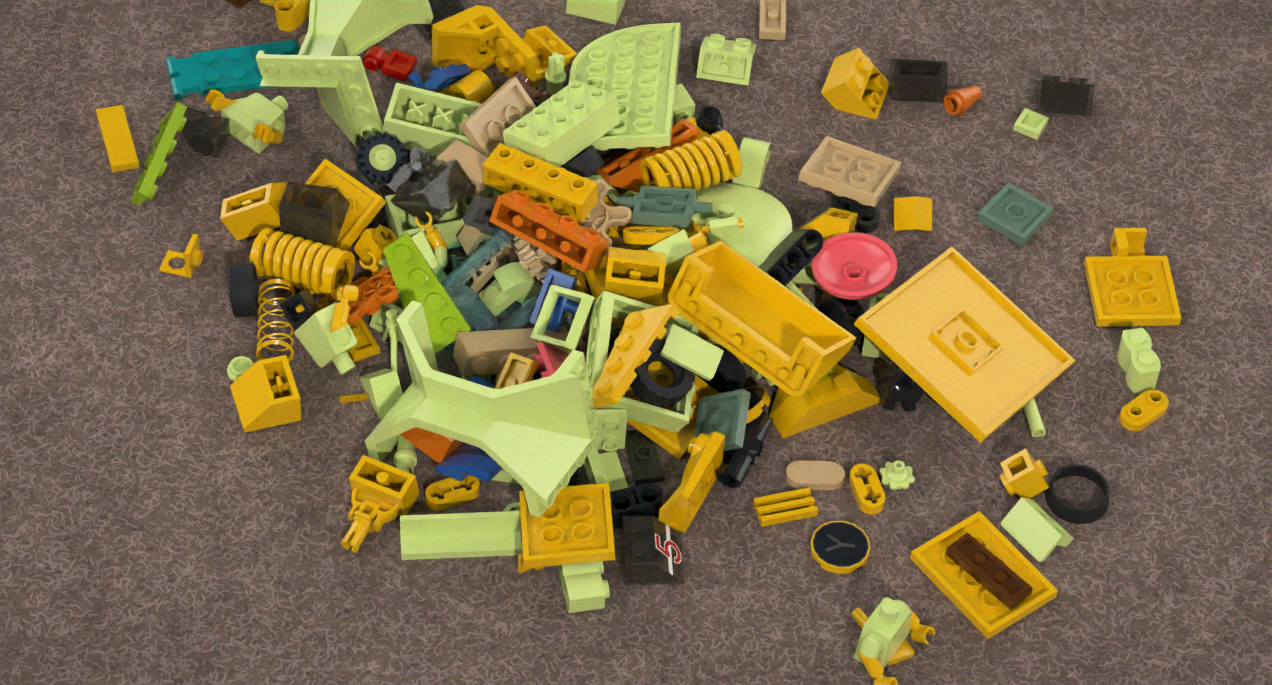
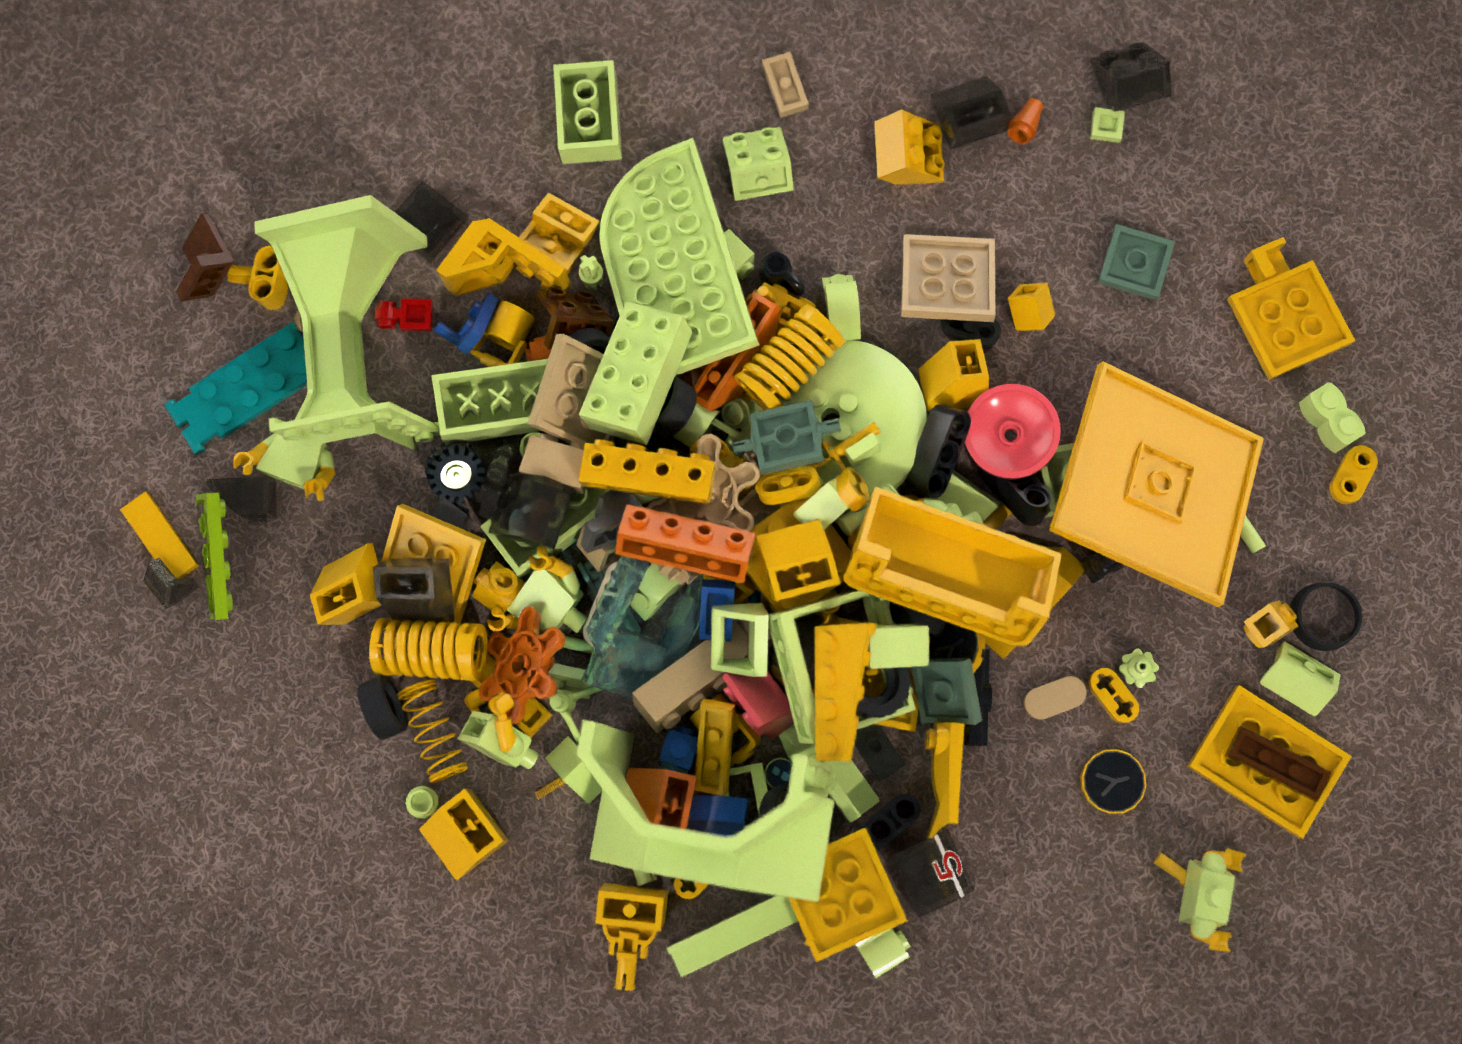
camera: 10 degrees left, 30 degrees up
(108, 166) = (165, 585): none -> clear smoke tile
(192, 257) = (309, 679): yellow bracket -> none
(300, 307) = (453, 713): black piece -> none
(419, 283) = (582, 671): lime wing -> none
(784, 502) = (1061, 736): yellow tile -> none

